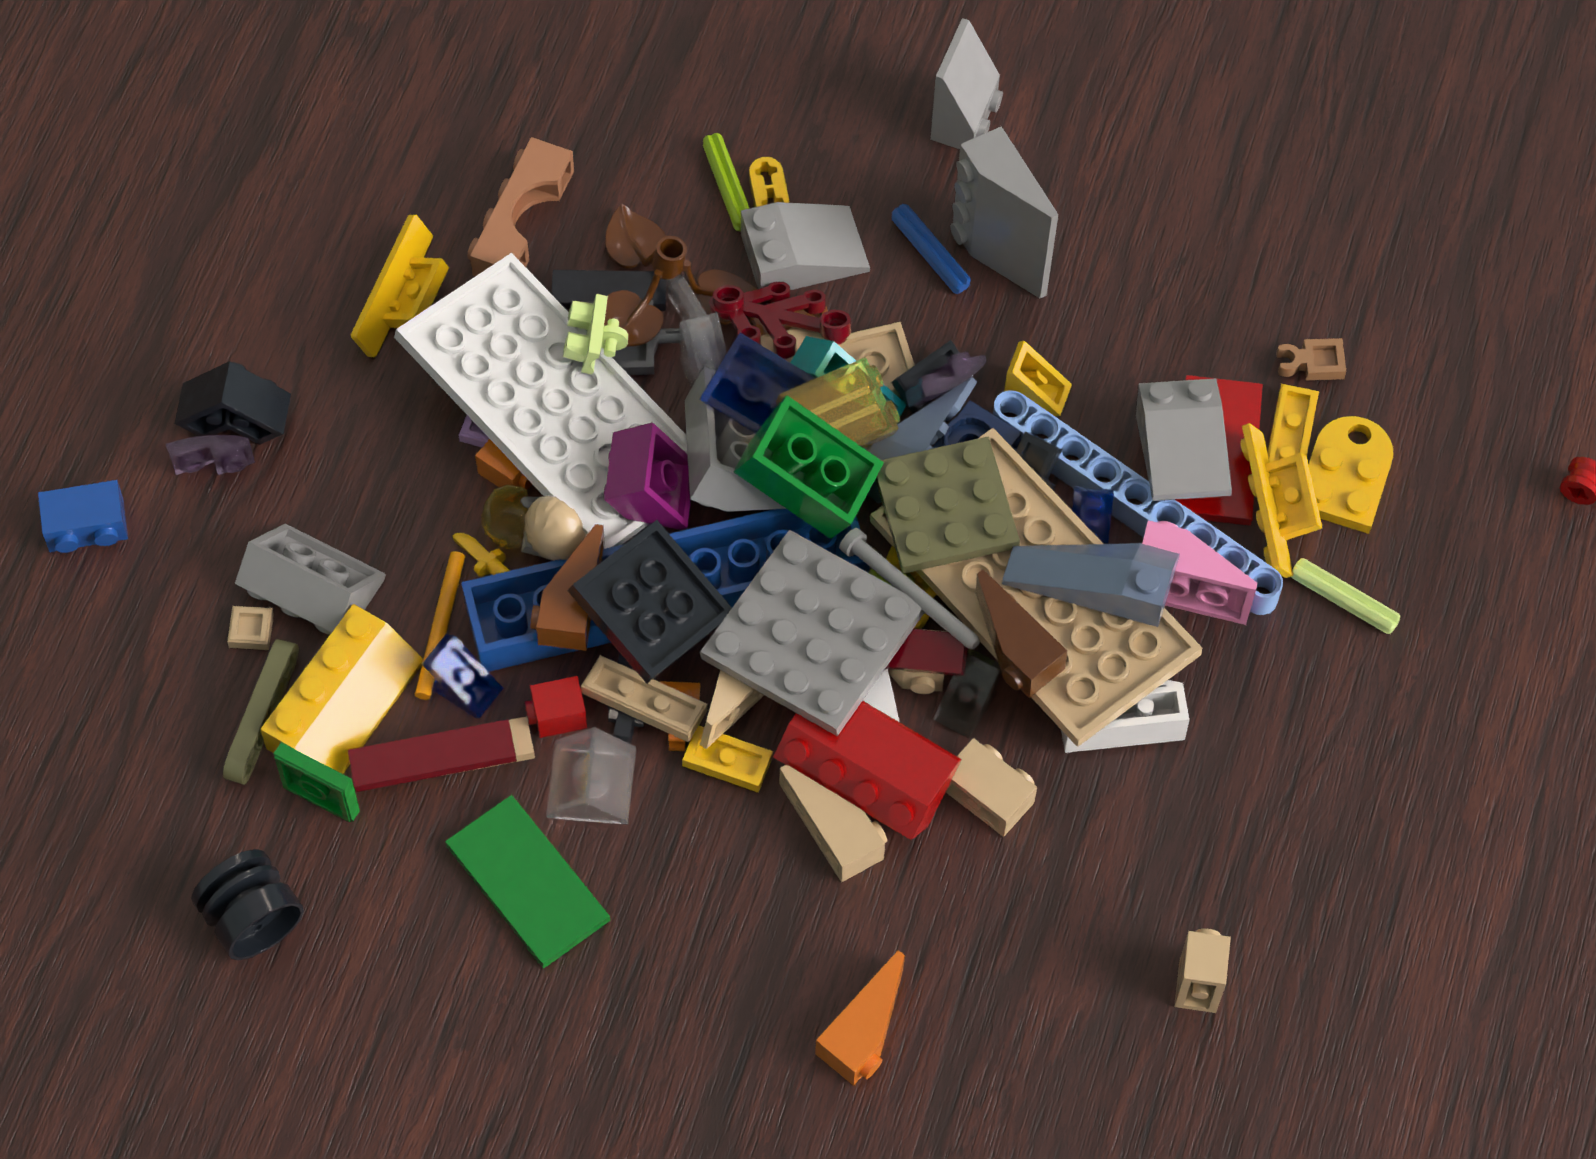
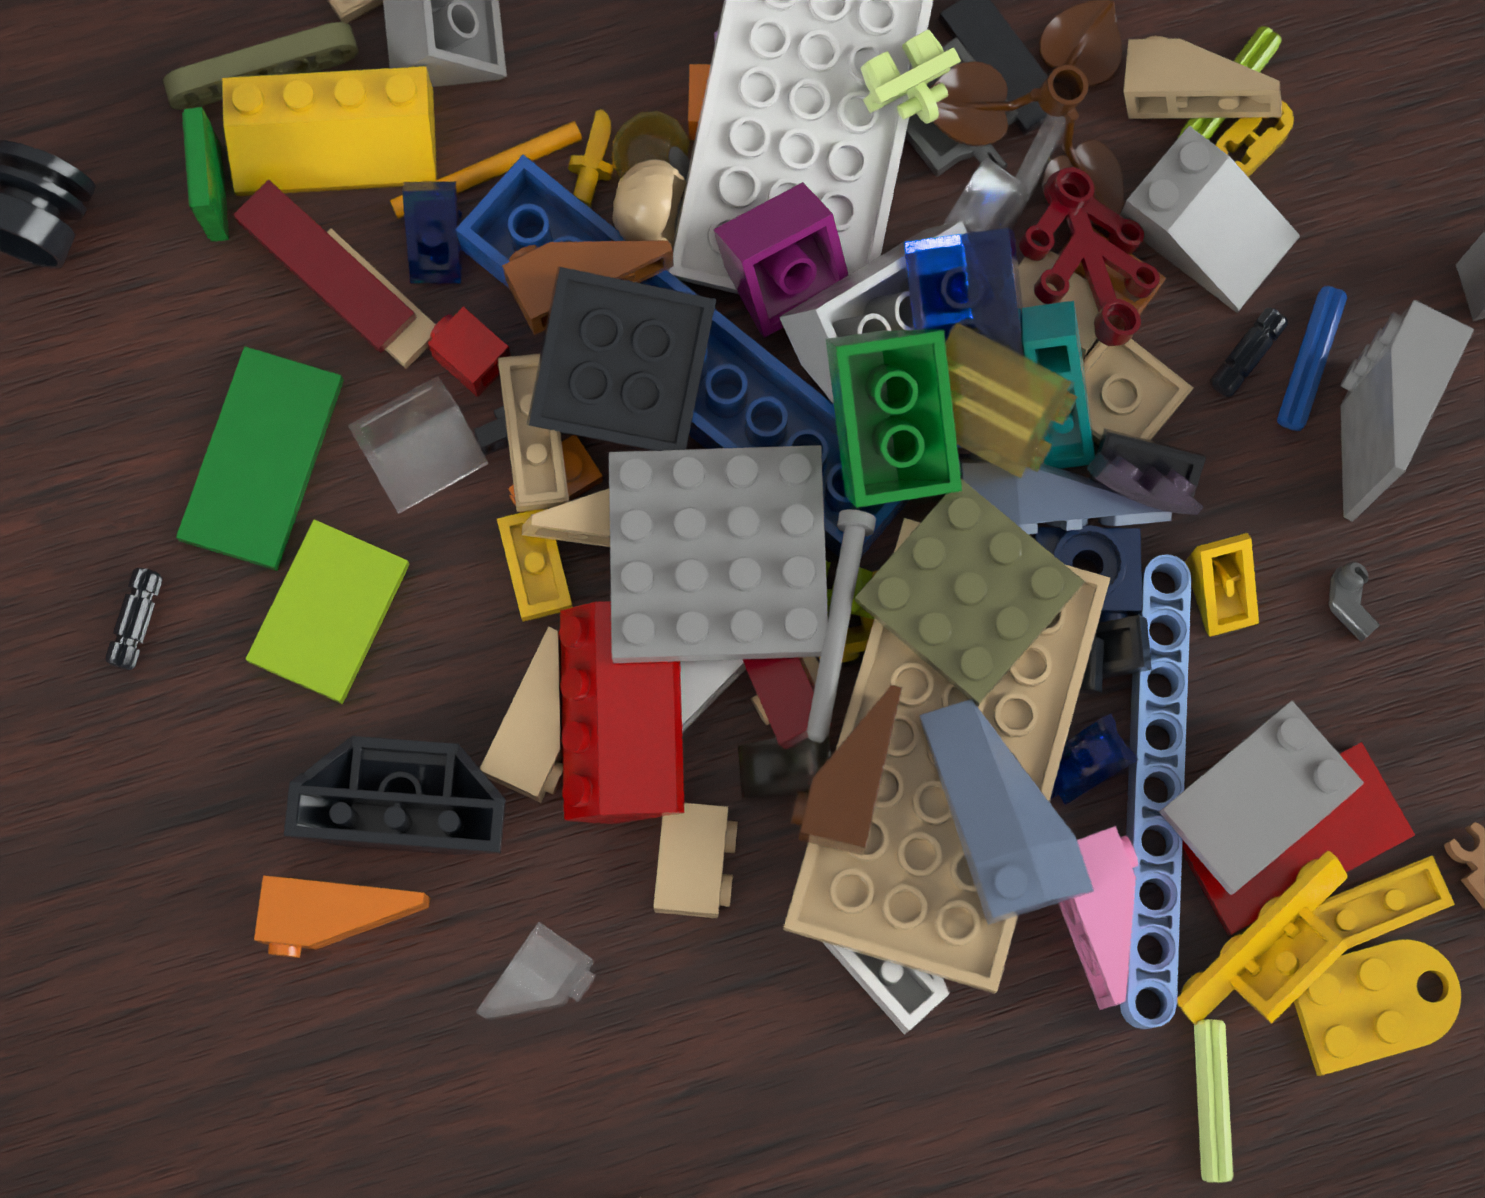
camera: 55 degrees right, 15 degrees up
(576, 1026) = (133, 618): none -> black axle
(663, 904) = (328, 611): none -> lime tile
(711, 194) = (1189, 82): none -> tan slope
(828, 926) = (397, 799): none -> black wedge
(900, 279) = (1248, 352): none -> black axle
(999, 921) = (539, 977): none -> clear slope
(1092, 328) = (1345, 600): none -> dark grey arm

